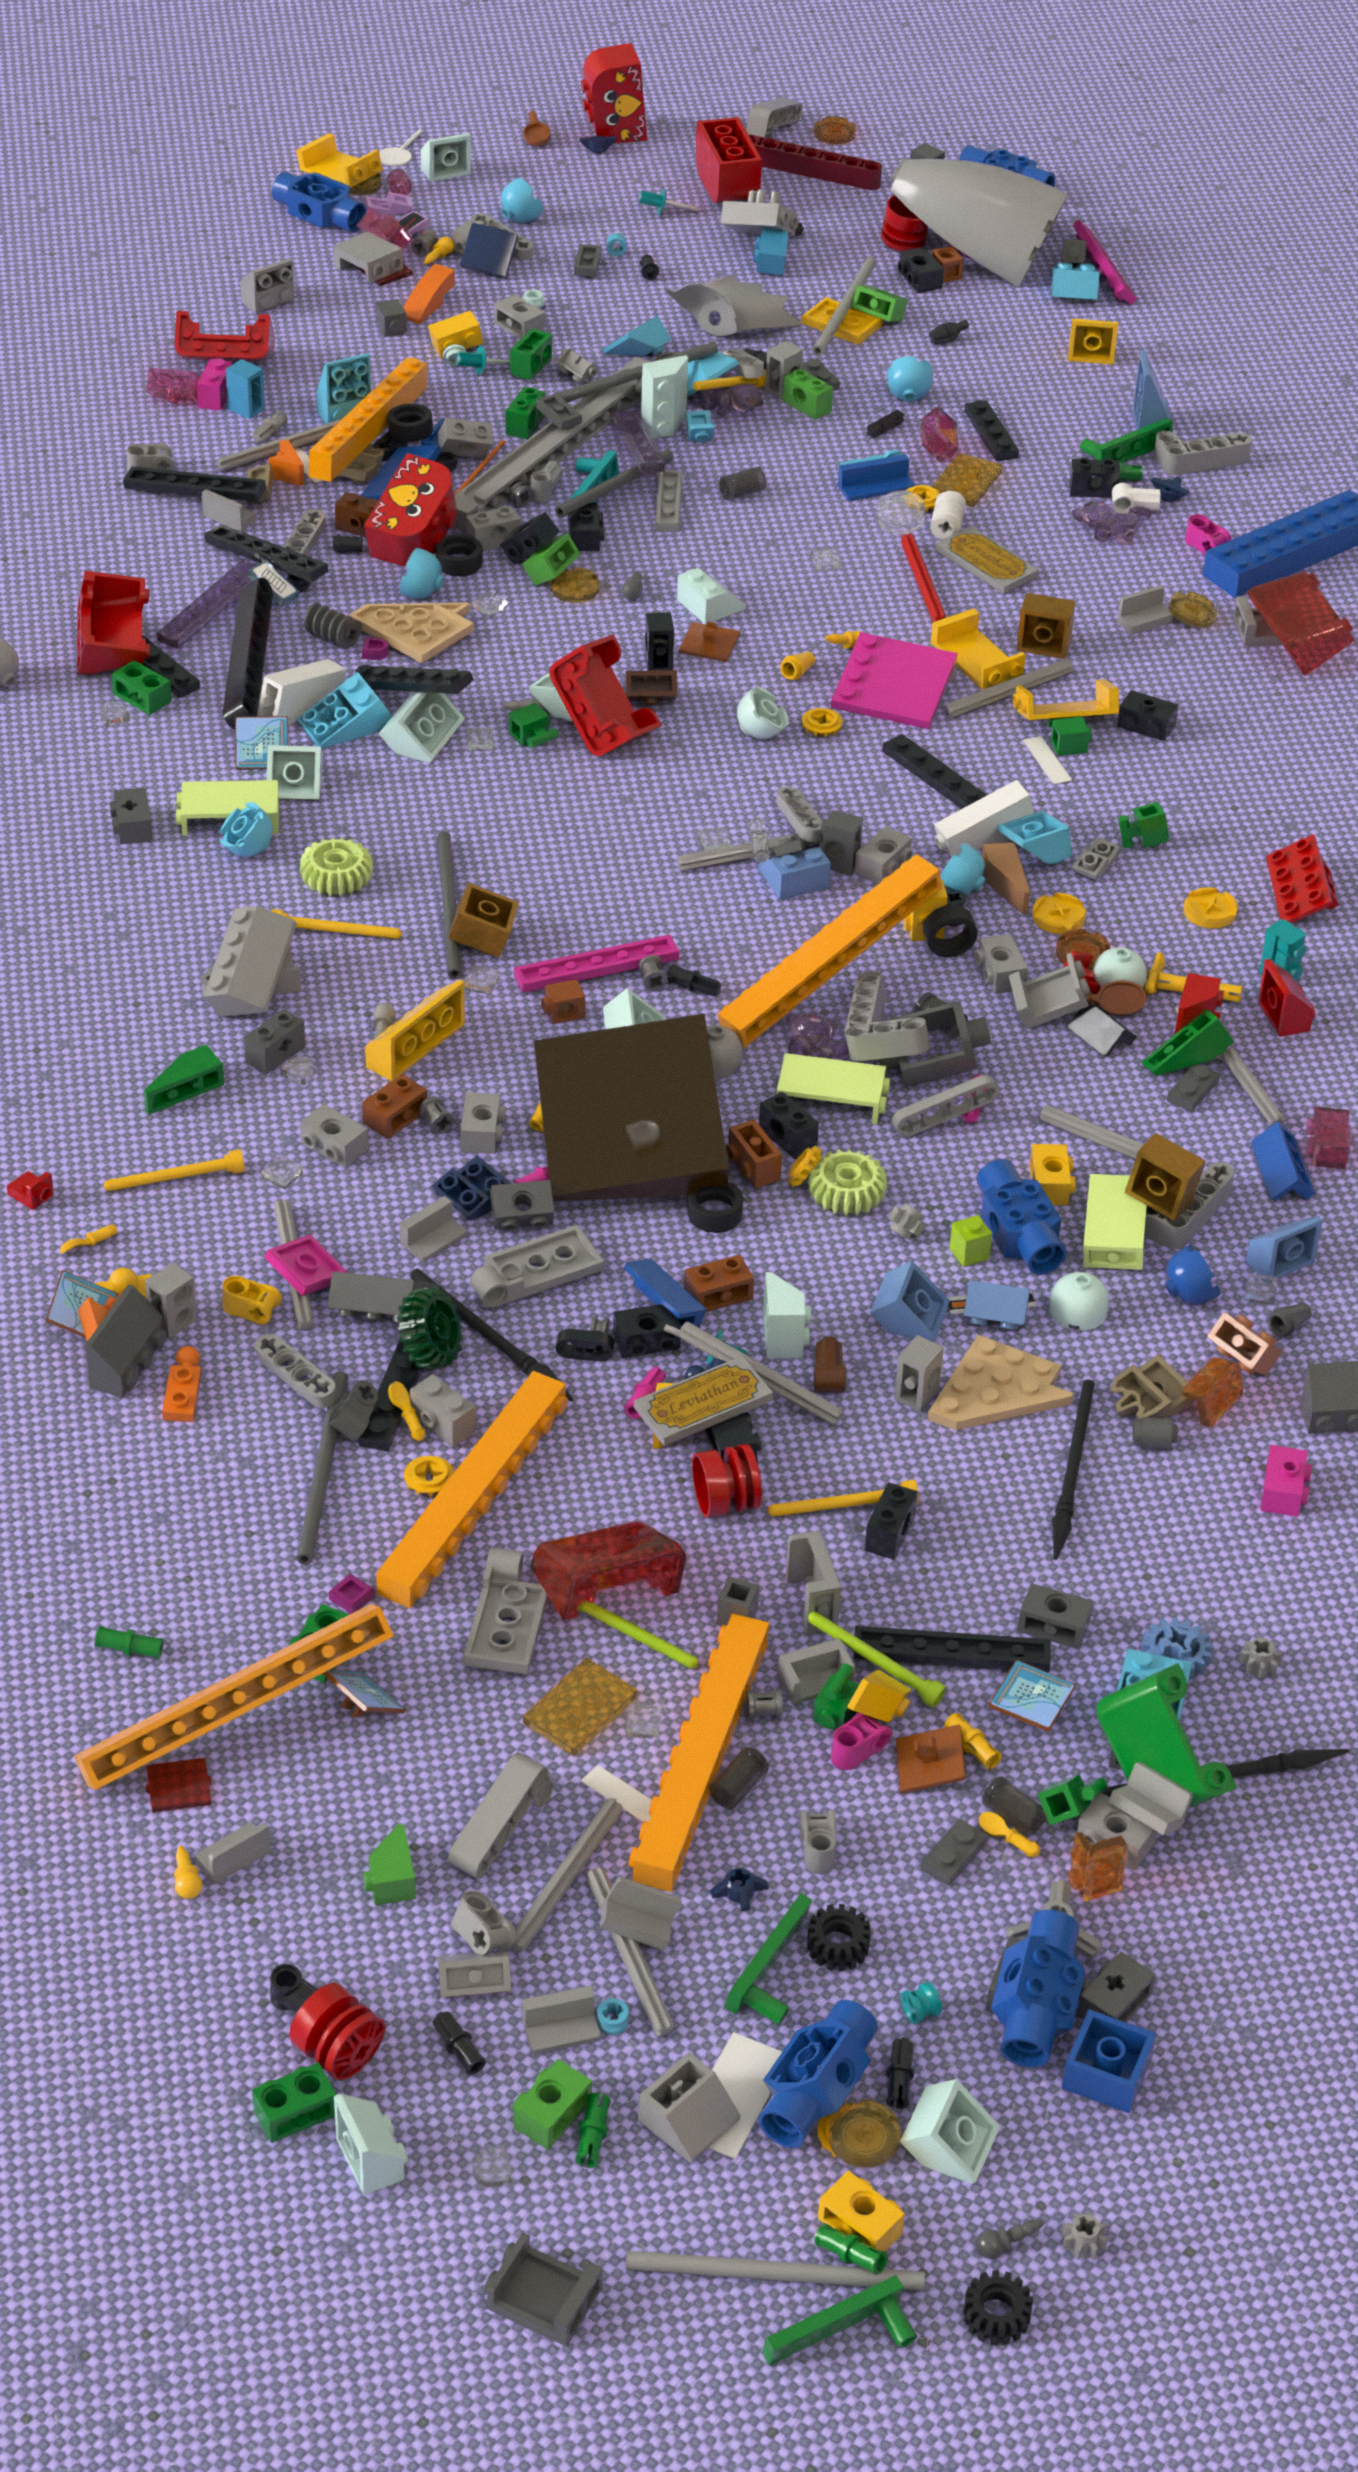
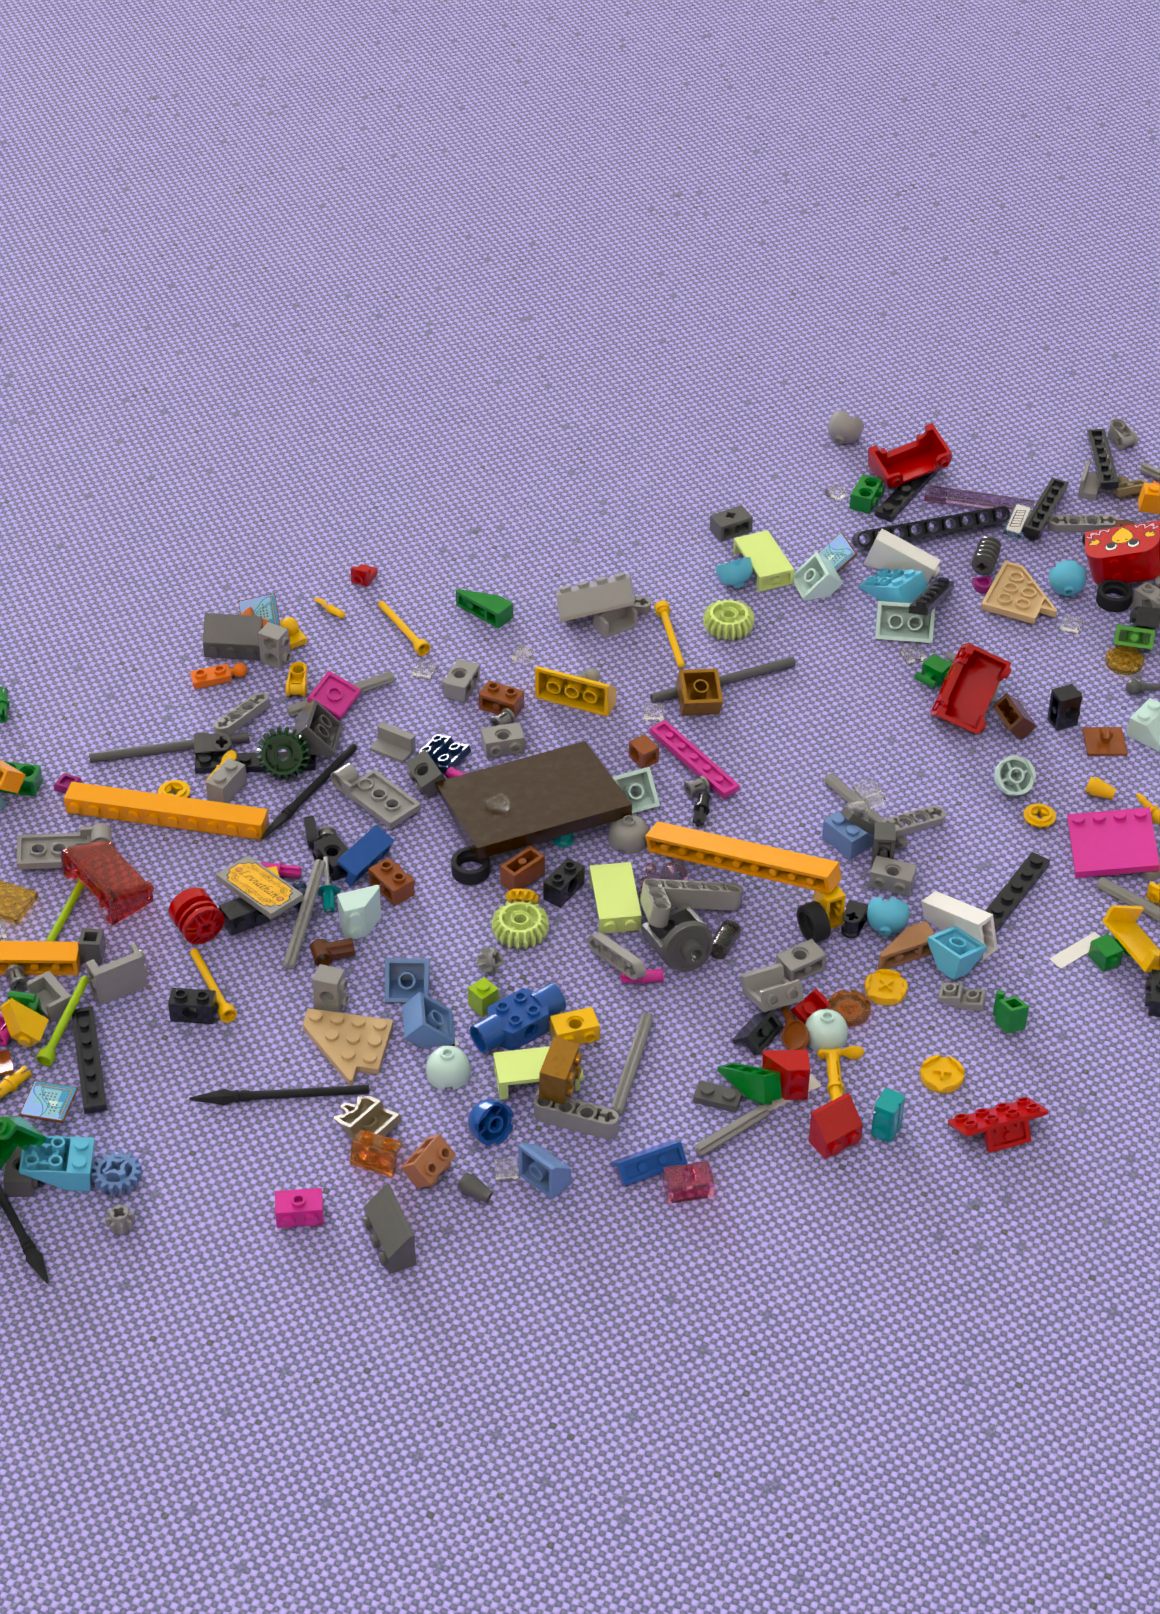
camera: 75 degrees right, 0 degrees up
(267, 1045) = (537, 633): dark grey brick -> none
(1055, 1616) = (130, 1104): dark grey brick -> none
(1154, 1433) = (324, 1128): dark grey brick -> none

